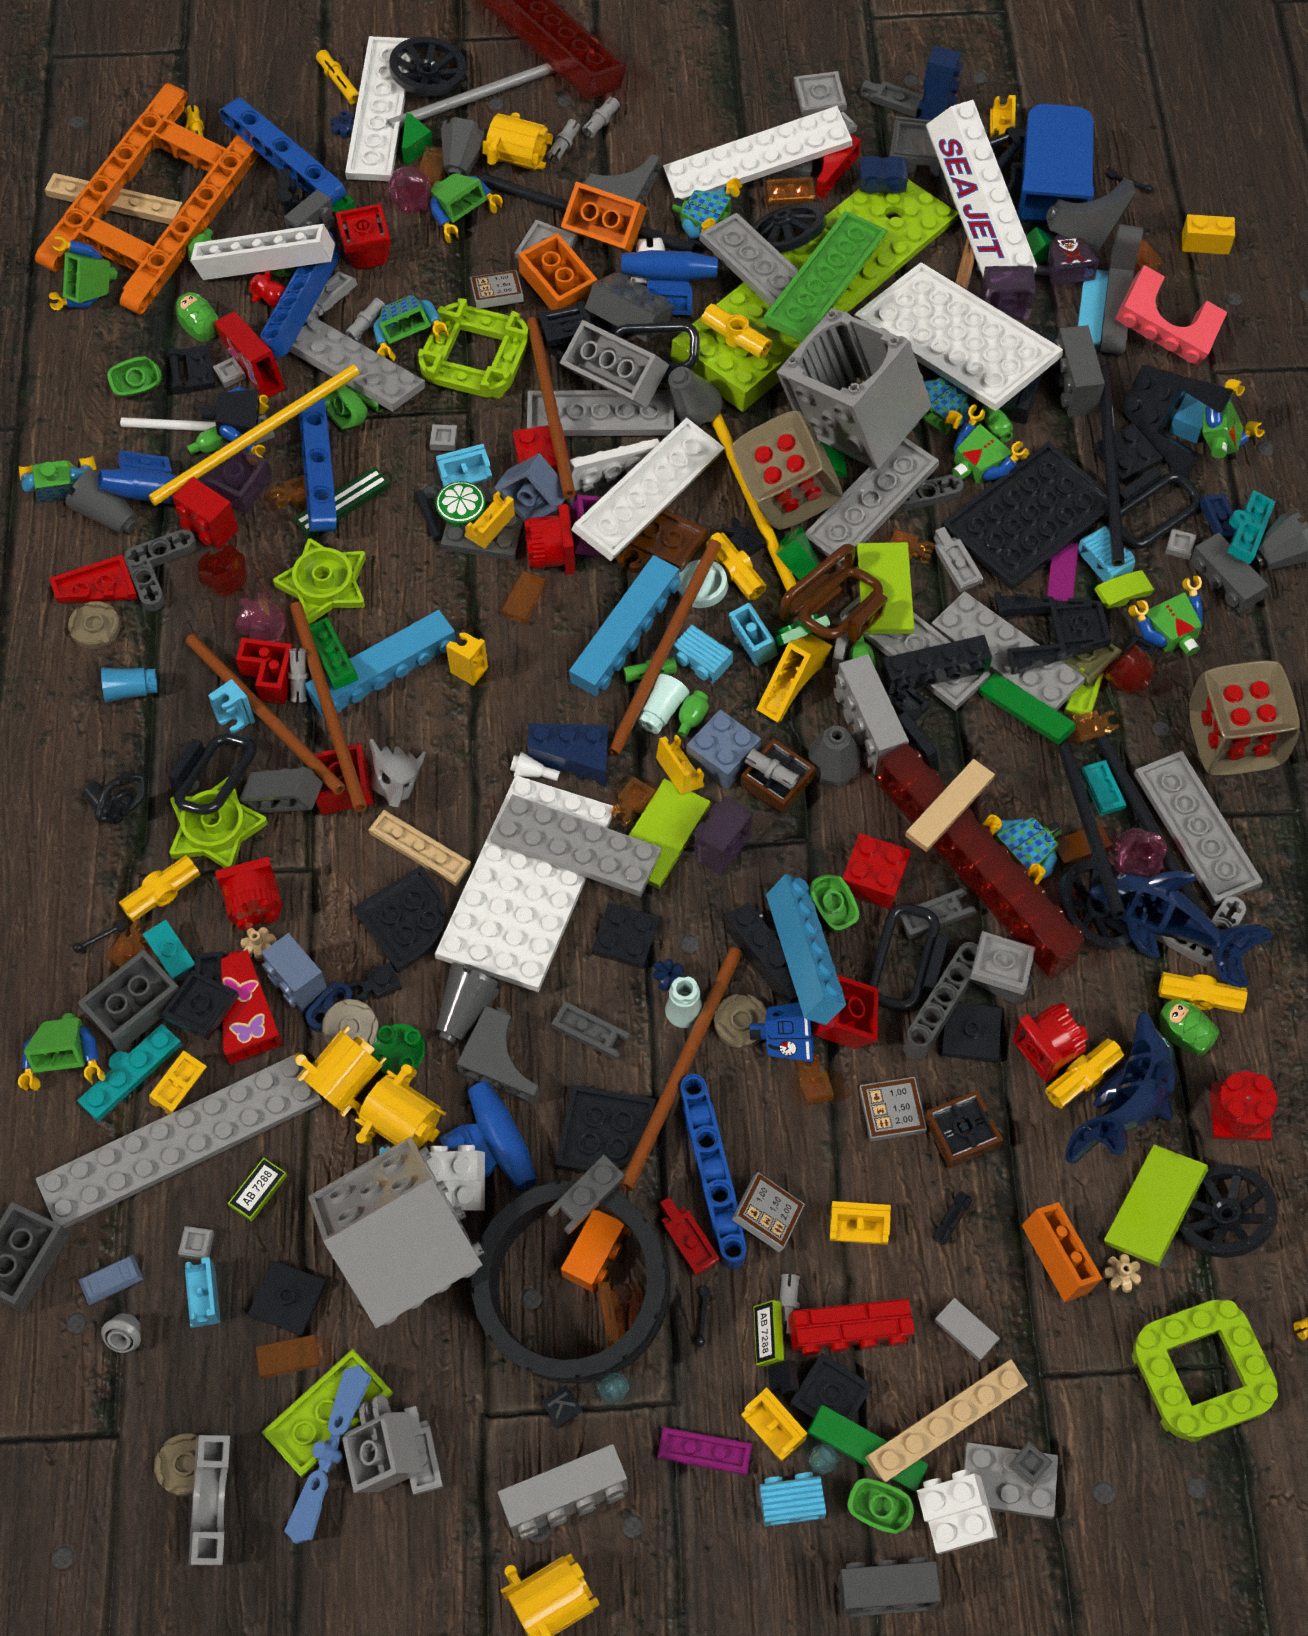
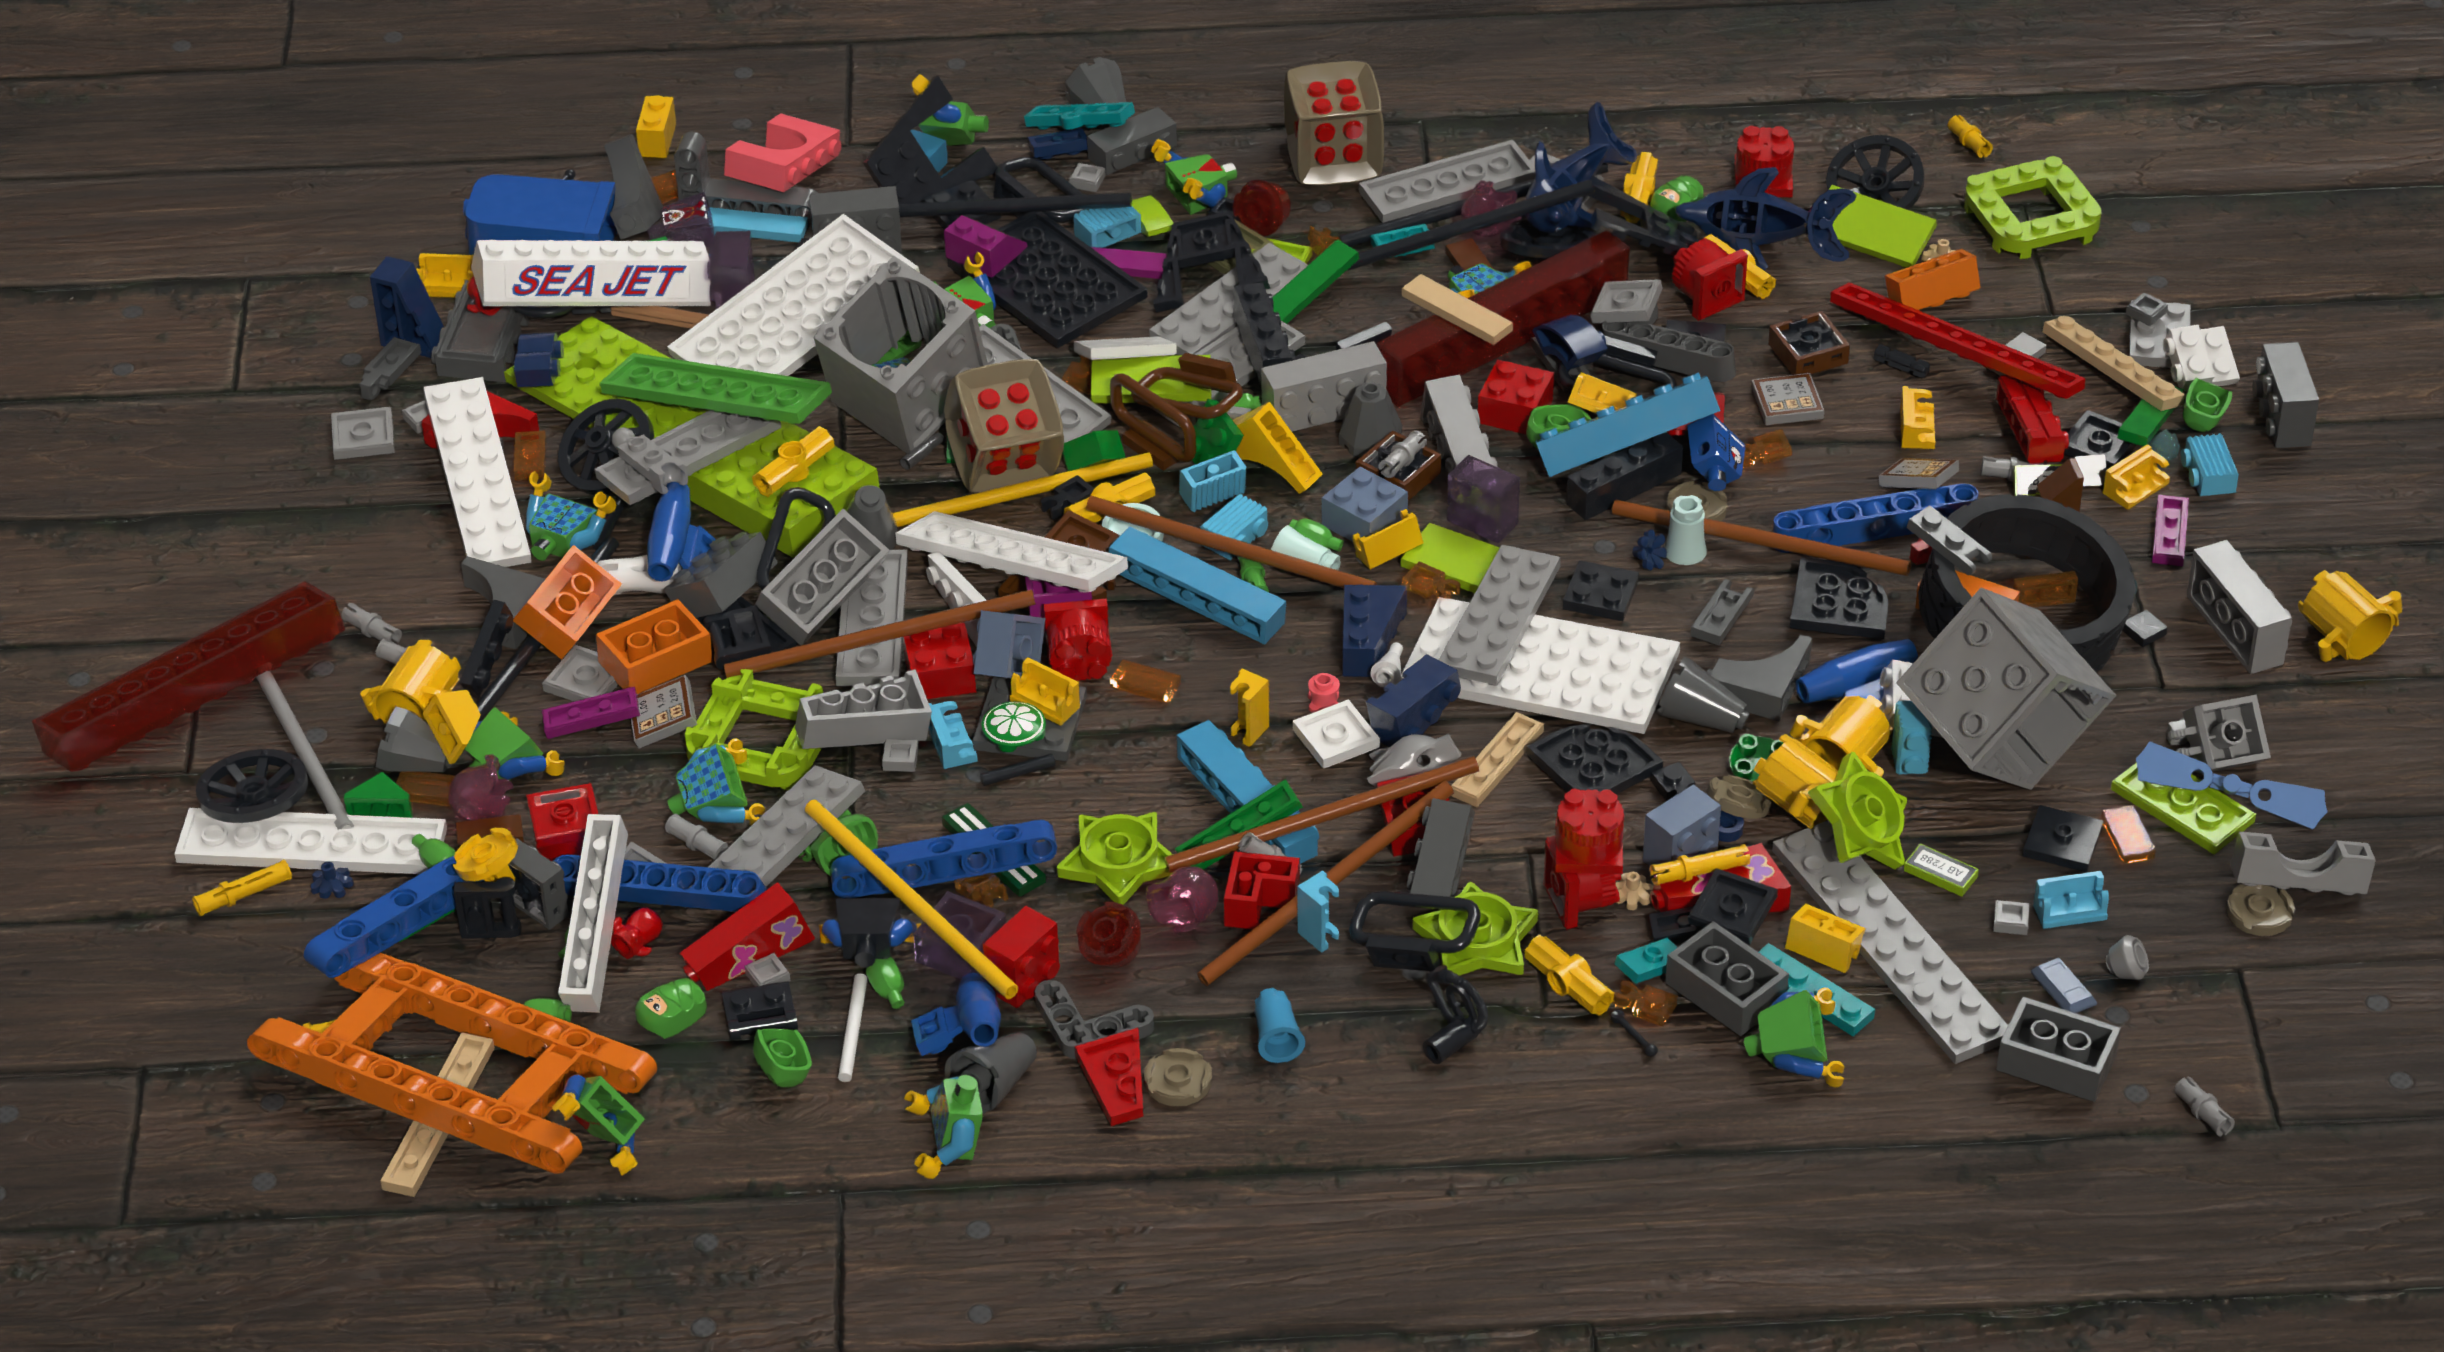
camera: 90 degrees left, 20 degrees down
(242, 971) = (1687, 867): none -> yellow pin
(247, 879) = (1589, 833): none -> red piece
(293, 1113) = (1863, 813): none -> lime plate
(309, 181) = (486, 856): none -> yellow tile
(345, 167) = (432, 850): none -> bright green plant
(381, 195) = (467, 829): none -> reddish brown tile
(450, 728) = (1336, 734): none -> white plate
(464, 159) = (452, 721): none -> yellow slope
(464, 777) = (1413, 701): none -> dark blue wedge
(472, 408) = (865, 714): none -> light grey wedge
(499, 720) = (1323, 691): none -> coral brick
(500, 249) = (591, 712): none -> magenta tile
(555, 175) = (487, 649): none -> black plate
(732, 1339) = (2063, 485): none -> reddish brown slope
(736, 239) = (649, 459): none -> light grey plate
(815, 821) = (1453, 422): none -> light grey wedge
(867, 939) = (1597, 394): none -> yellow hinge
(923, 567) = (1125, 348): none -> white tile
(934, 907) = (1571, 341): none -> dark blue brick
(957, 561) = (1116, 327): light grey hinge -> none
(959, 1265) = (1958, 340): none -> red plate
(1056, 460) = (969, 236): none -> magenta slope
(1113, 1007) = (1655, 225): none -> black wing

